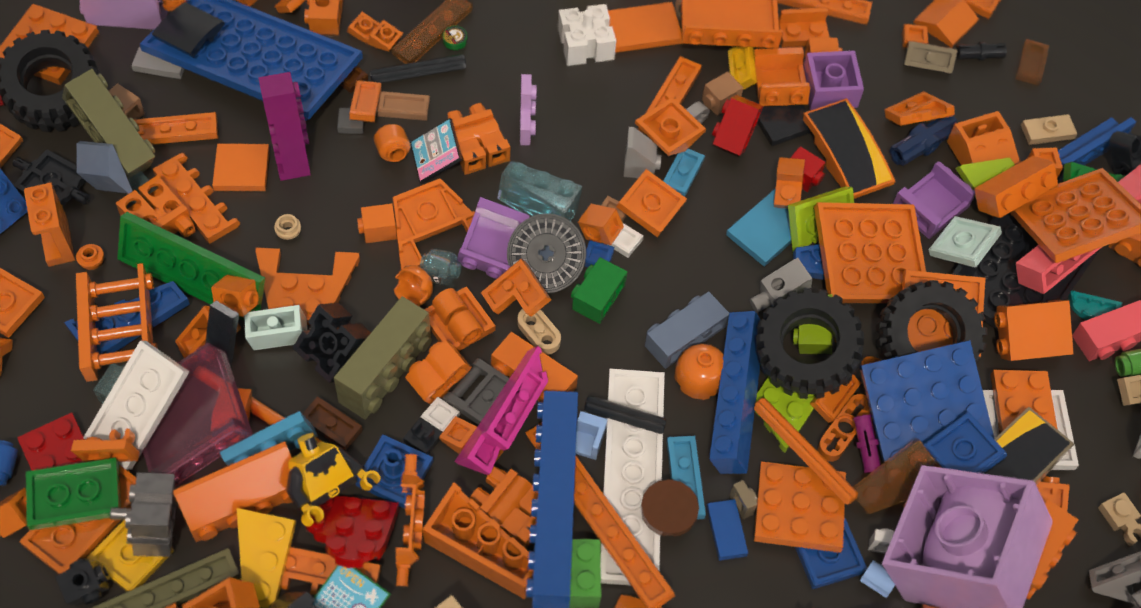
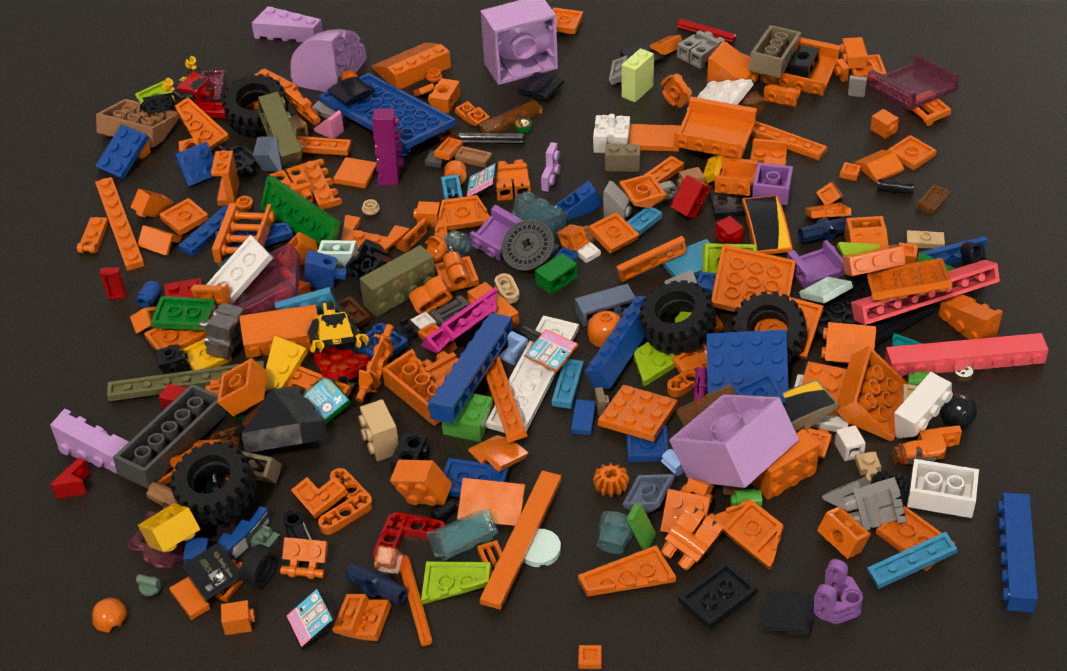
camera: 25 degrees right, 15 degrees down
(49, 321) = (203, 234): none -> blue plate
(122, 67) = (302, 106): none -> orange plate
(174, 91) = (331, 126): none -> bright pink slope
(222, 328) = (302, 244): black tile -> none
(236, 293) = (318, 229): orange brick -> none
(261, 362) = (322, 270): none -> blue torso
(368, 265) = (413, 236): none -> orange slope
(398, 174) = (451, 187): none -> dark azure slope
(517, 284) = (500, 260): orange plate -> none
(586, 158) = (581, 201): none -> blue slope
(616, 72) = (622, 157): none -> dark tan brick
(651, 435) = (551, 350): none -> piece
(669, 508) = (547, 393): reddish brown tile -> none
(723, 240) = (651, 259): none -> orange tile
(789, 182) = (712, 232): orange slope -> none
(806, 451) = (652, 380): orange axle -> none
(906, 80) = (829, 193): none -> orange panel
(930, 56) = (854, 183): dark tan plate -> none
(1089, 487) = (849, 442): none -> white brick
(1090, 404) = (870, 394): none -> orange slope

